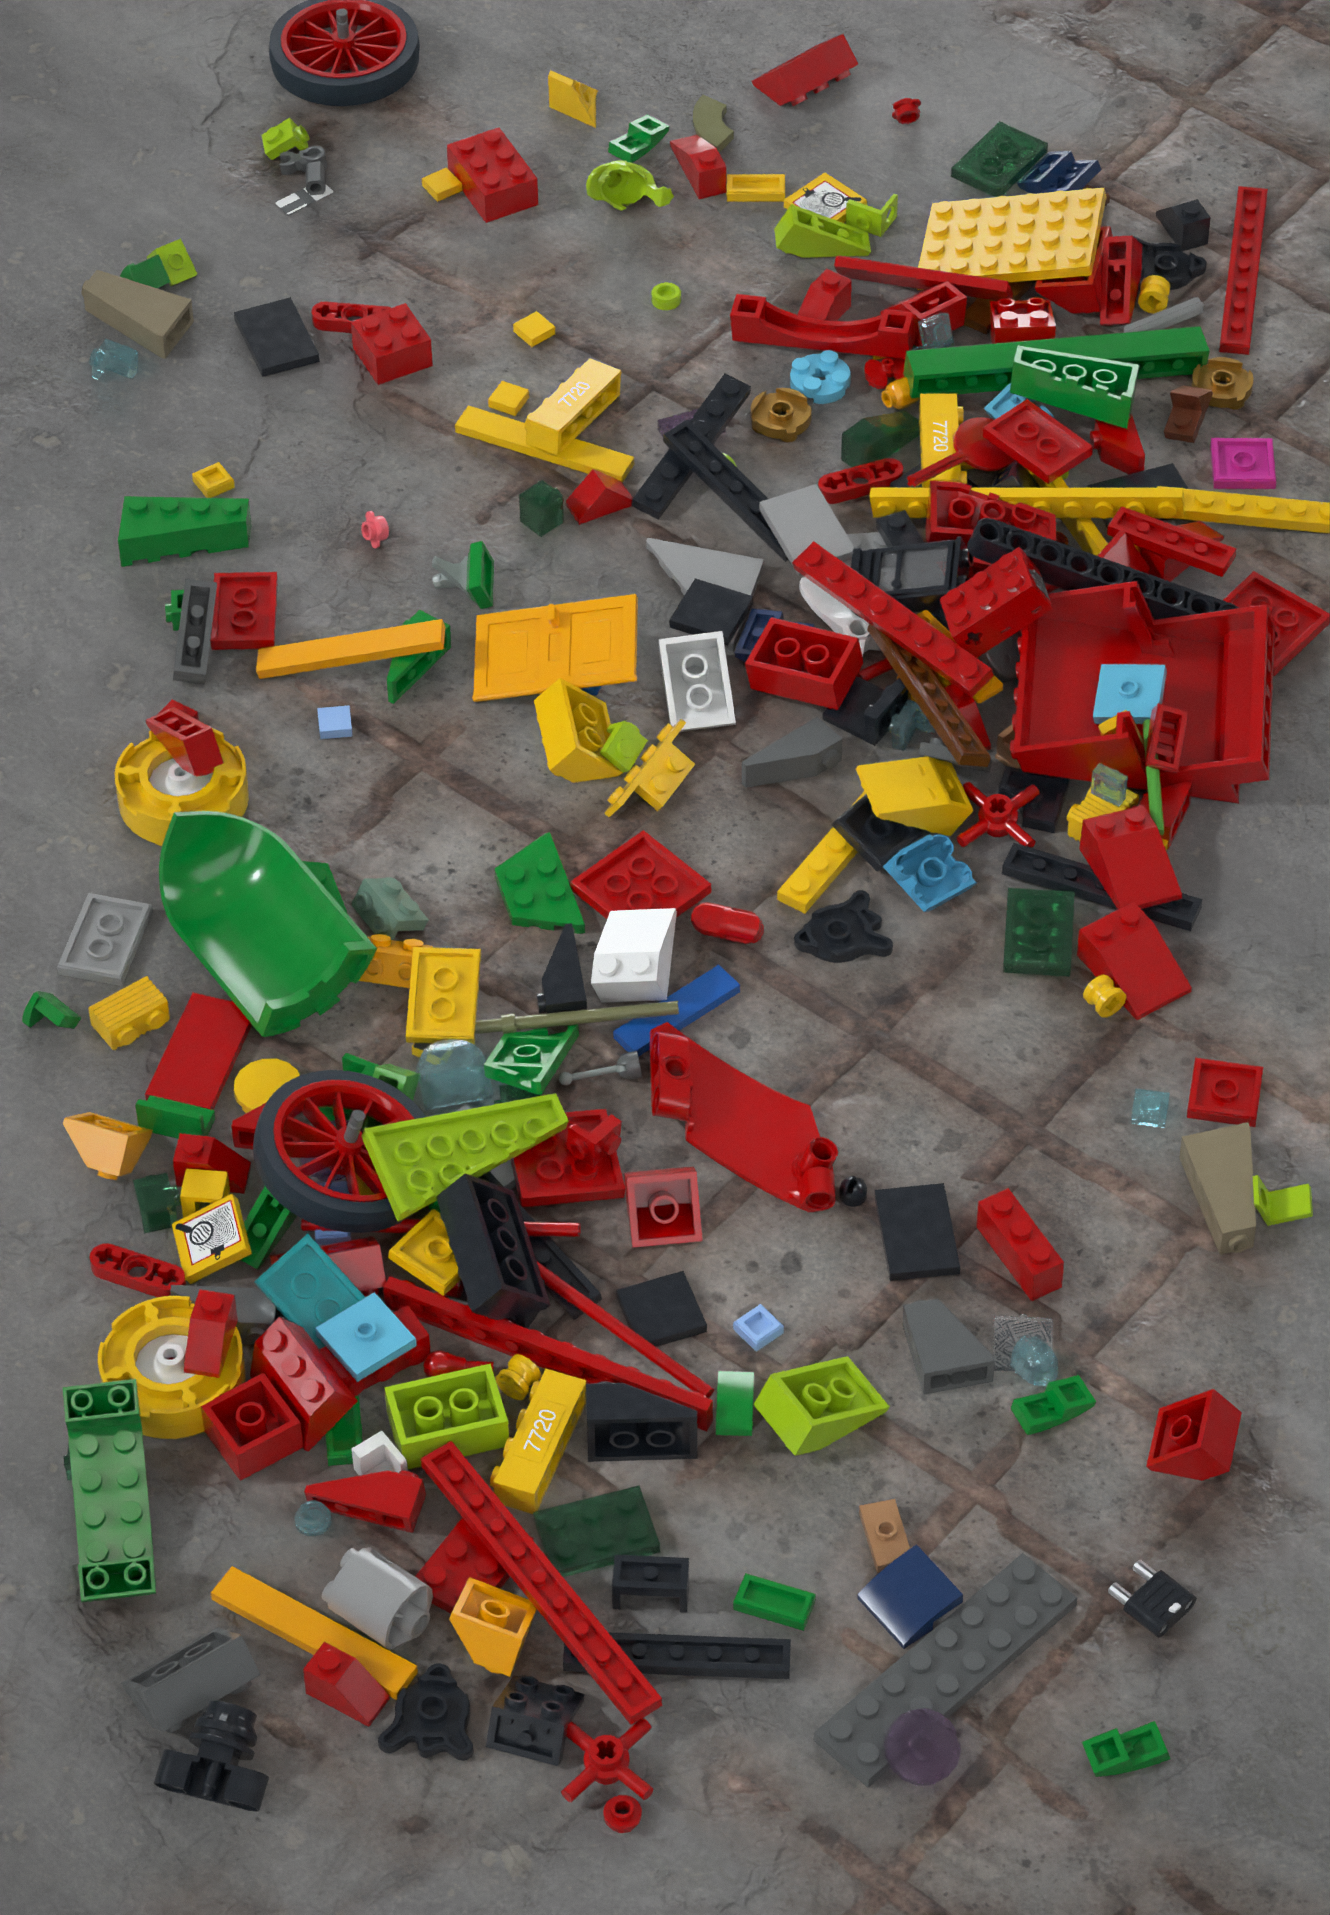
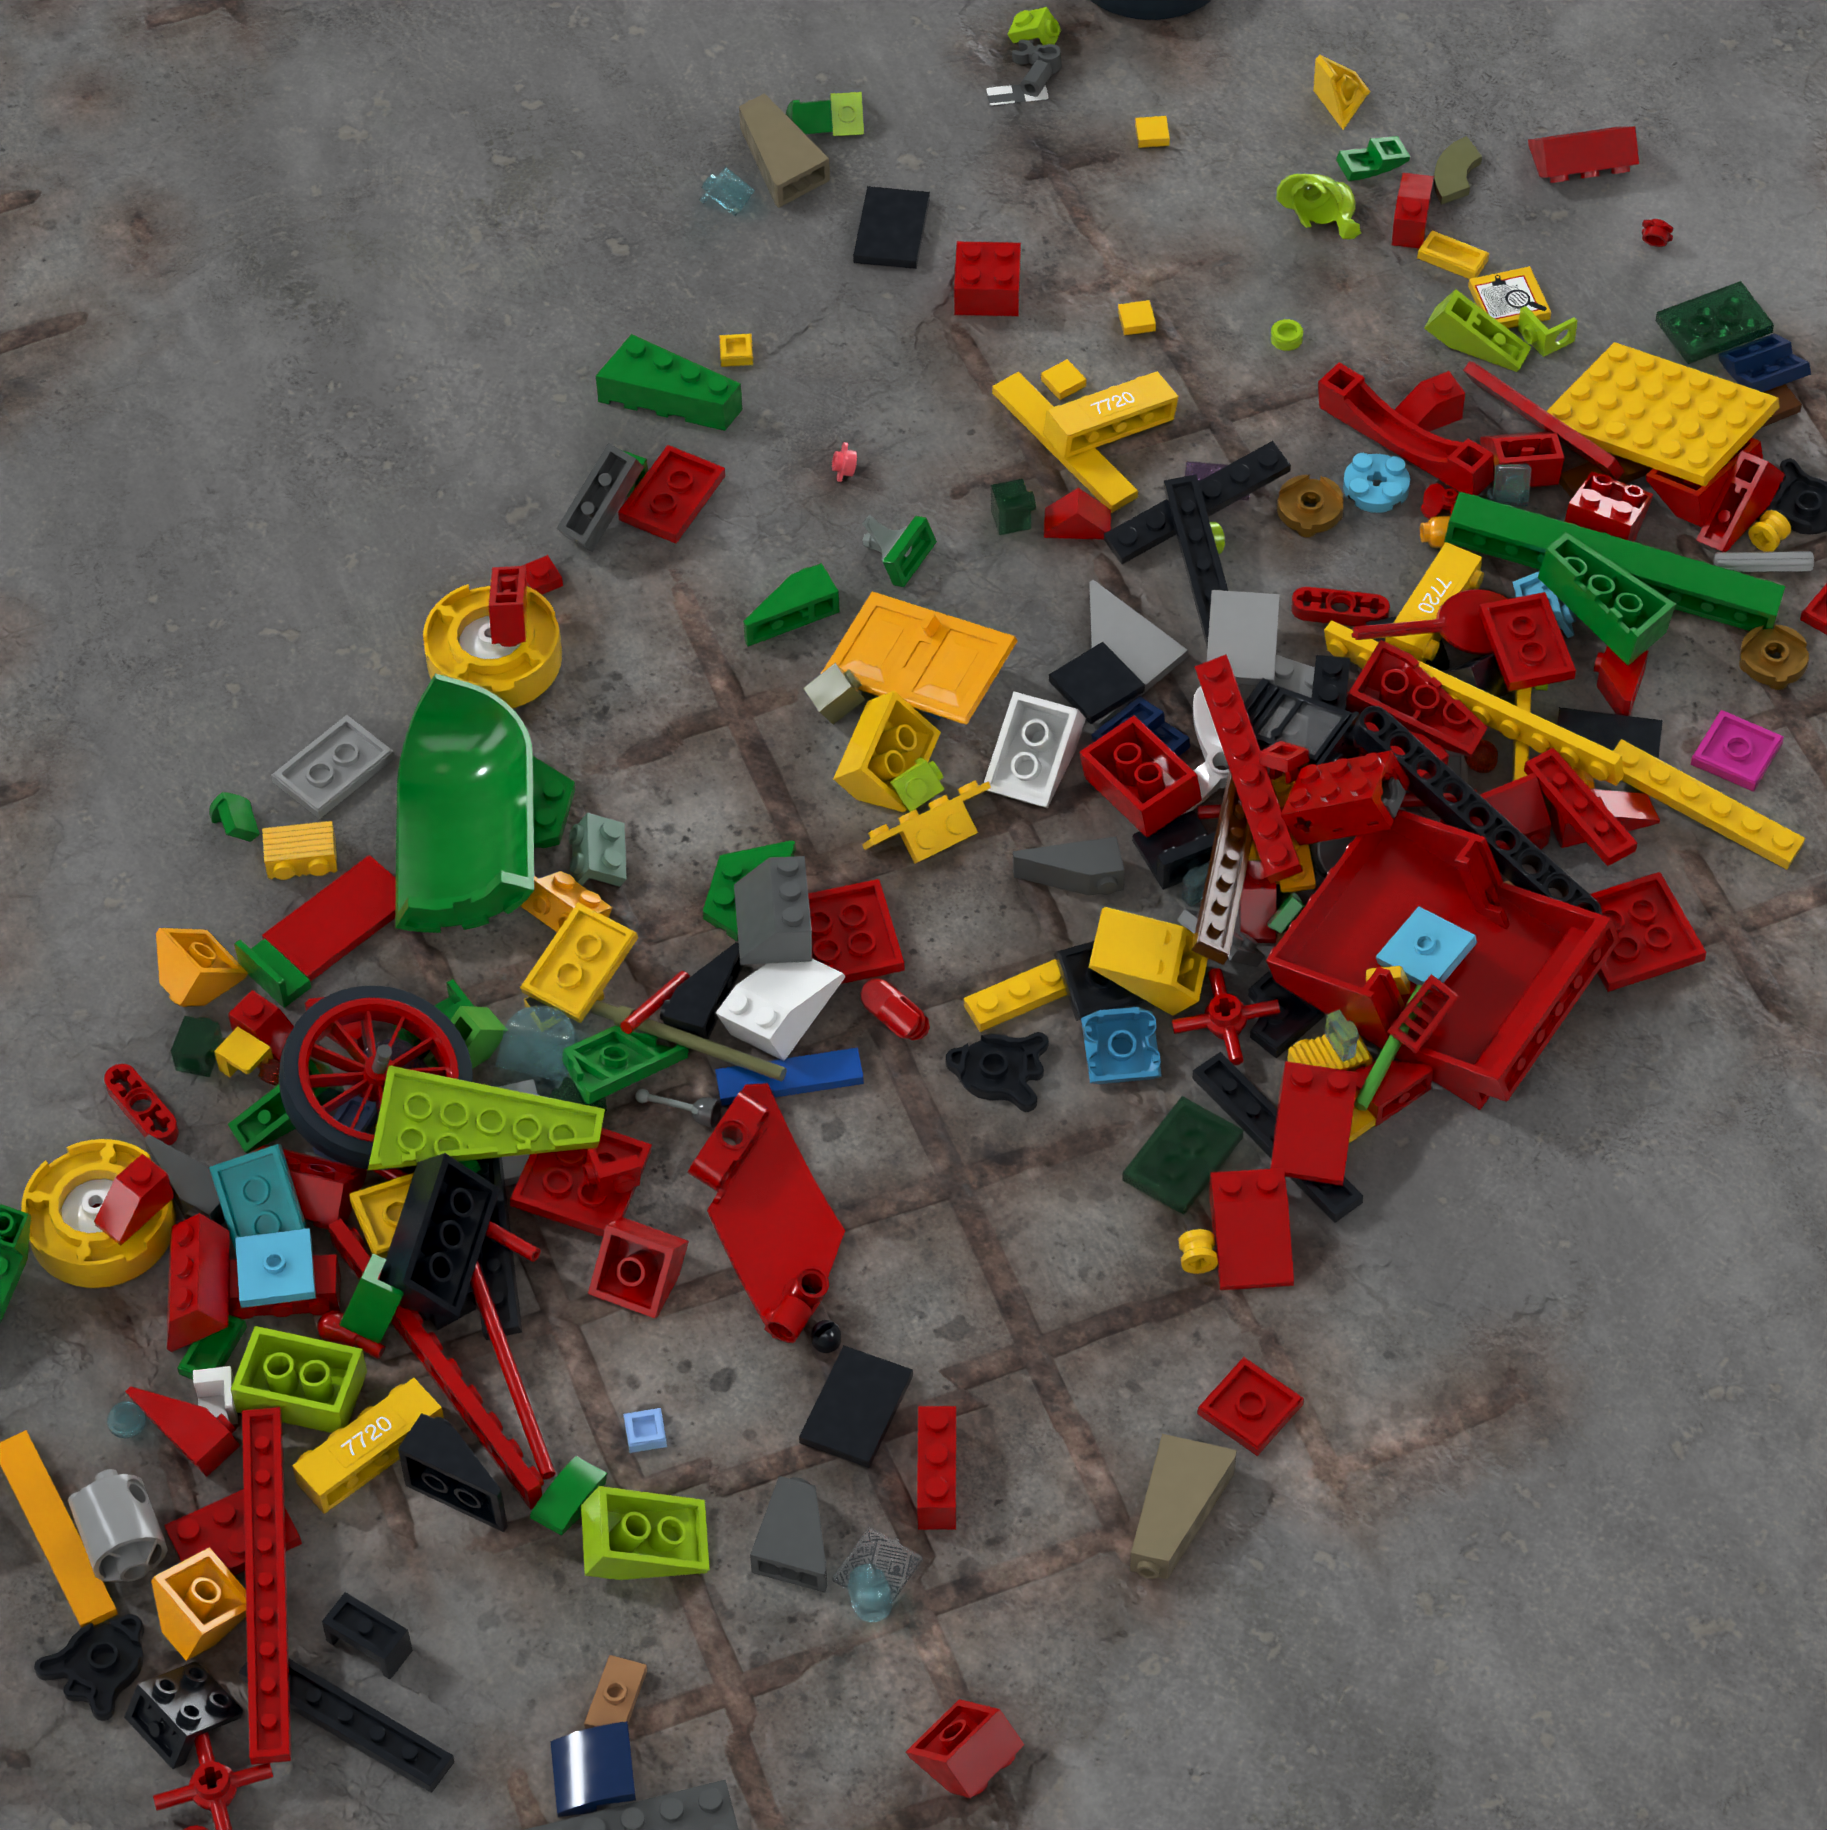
camera: 30 degrees right, 5 degrees up
(211, 1238) = (219, 1104): tile -> none
(243, 1192) = (269, 1072): none -> clear red plate
(252, 1426) = (126, 1305): red brick -> none
(260, 1080) = (374, 968): yellow tile -> none
(333, 310) = (967, 226): red beam -> none
(334, 722) = (679, 642): light blue tile -> none
(344, 1684) = (40, 1594): red slope -> none
(350, 649) = (734, 575): light orange tile -> none
(470, 1324) = (372, 1303): none -> green panel
(493, 174) = (1202, 141): red brick -> none
(502, 704) = (835, 693): none -> brick
(518, 1377) = (392, 1371): yellow wheel -> none
(528, 999) = (653, 1003): none -> red bar
(585, 885) = (774, 913): none -> dark grey slope
(594, 1529) = (362, 1559): clear green plate -> none
(662, 1309) = (569, 1370): black tile -> none
(774, 1602) = (471, 1709): green tile -> none
(878, 437) = (1384, 568): clear green slope -> none
(922, 596) = (1284, 758): none -> red tile
(997, 716) = (1286, 913): none -> green tile
(1058, 1404) = (863, 1647): green slope -> none
(1150, 1108) = (1165, 1387): clear light blue plate -> none
(1187, 413) = (1717, 669): copper slope -> none
(1282, 1204) = (1217, 1549): lime bracket -> none

